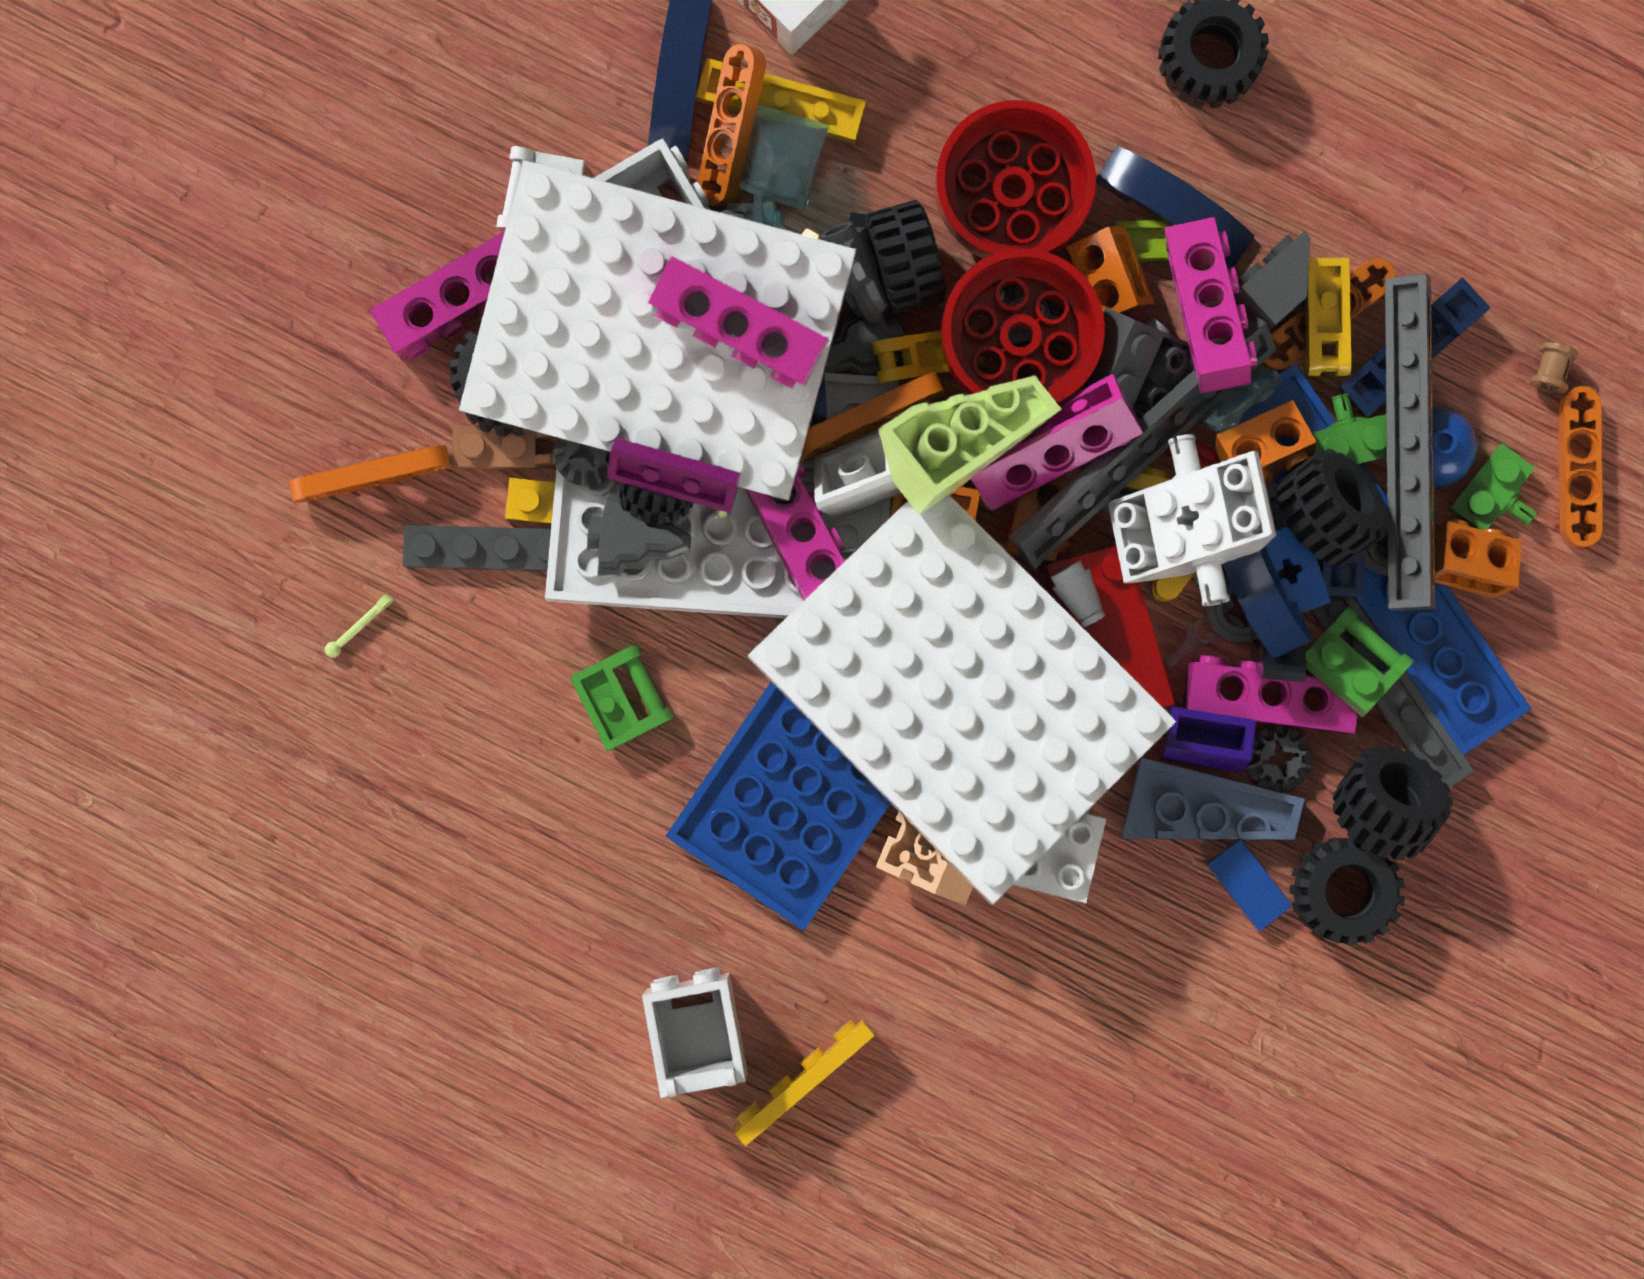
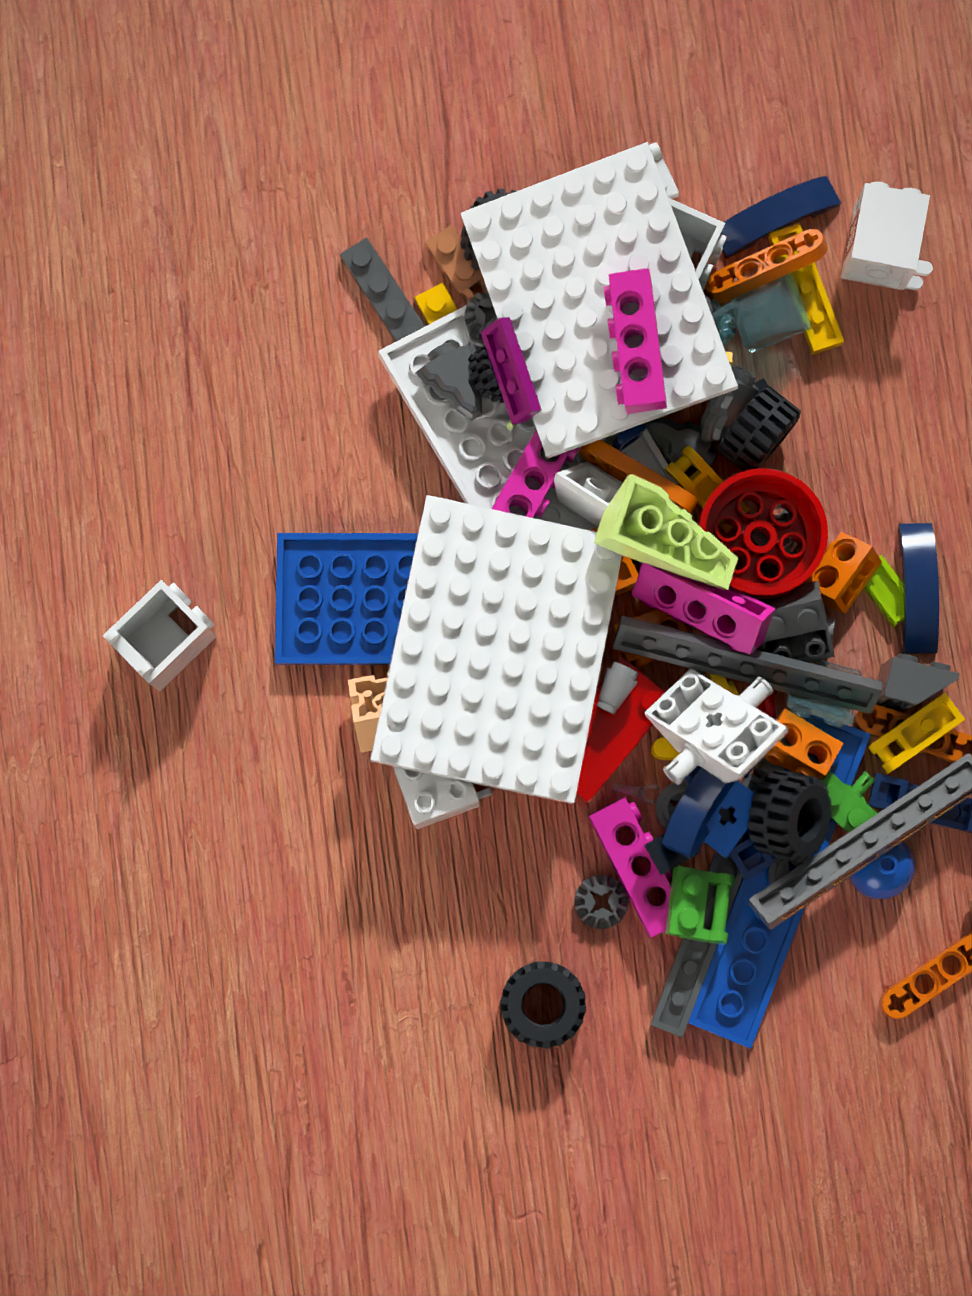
camera: 60 degrees right, 5 degrees down
(333, 648) = (257, 247): yellowish green hinge -> none
(369, 474) = (384, 194): orange beam -> none
(397, 313) = (498, 143): dark pink brick -> none
(610, 706) = (338, 442): bright green plate -> none
(789, 1091) = (163, 724): yellow plate -> none
(1030, 131) = (861, 427): red wheel -> none
(1197, 805) = (531, 865): sand blue wing -> none
(1209, 740) = (580, 842): dark purple brick -> none
(1214, 364) = (895, 608): dark pink brick -> none
(1248, 885) = (503, 938): blue tile -> none
(1392, 802) = (621, 992): black tyre -> none
(1471, 565) = (816, 943): orange brick -> none
(1495, 491) = (880, 927): bright green plate -> none

